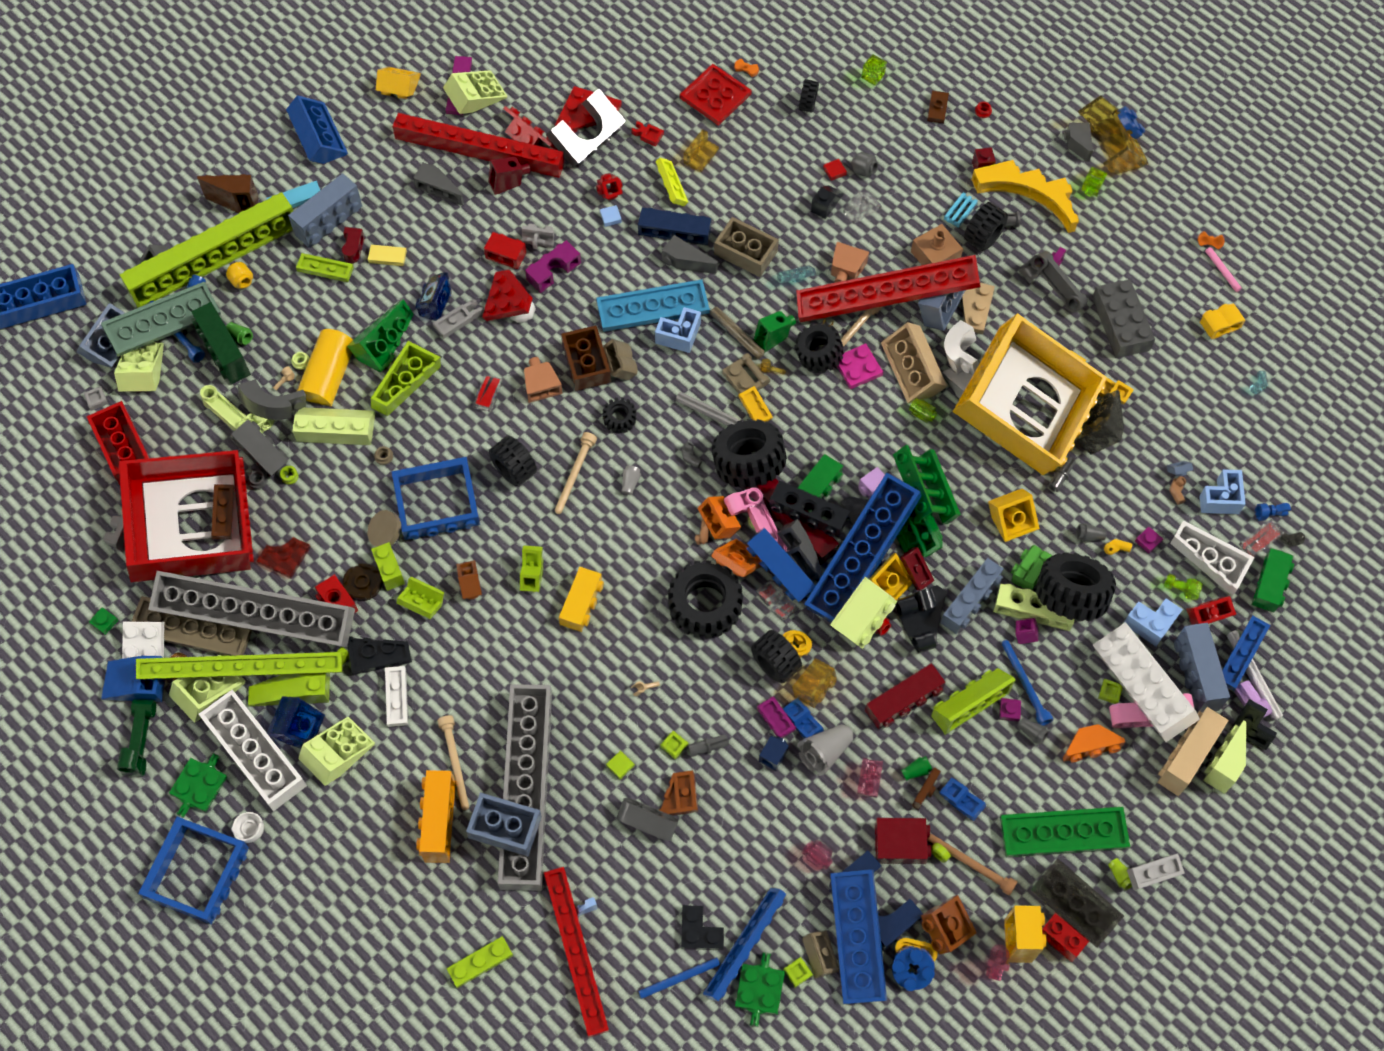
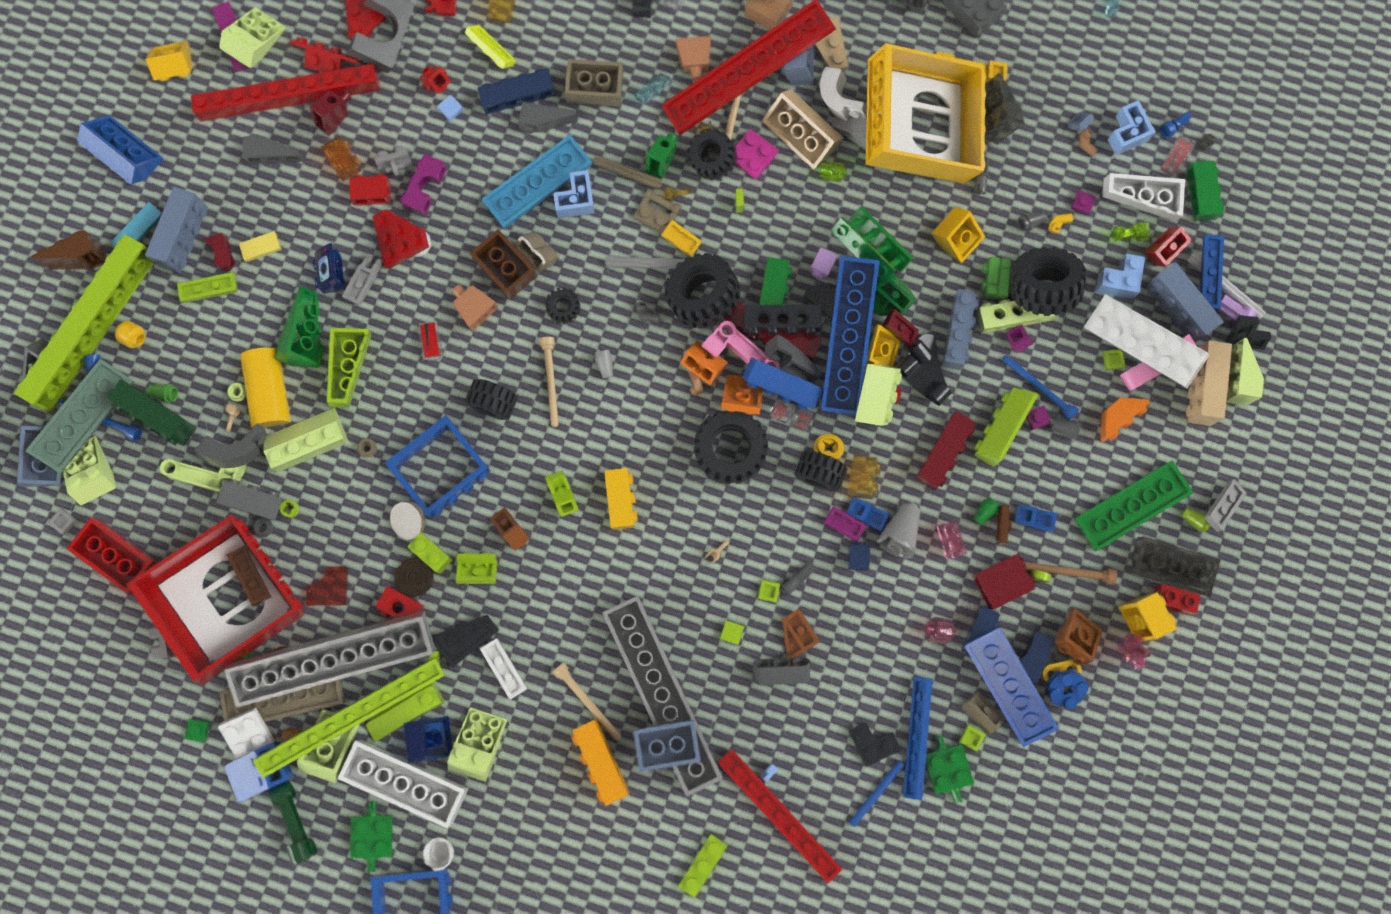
camera: 25 degrees left, 15 degrees up
(494, 215) = (341, 159): none -> clear orange brick
(824, 397) = (739, 196): none -> lime tile

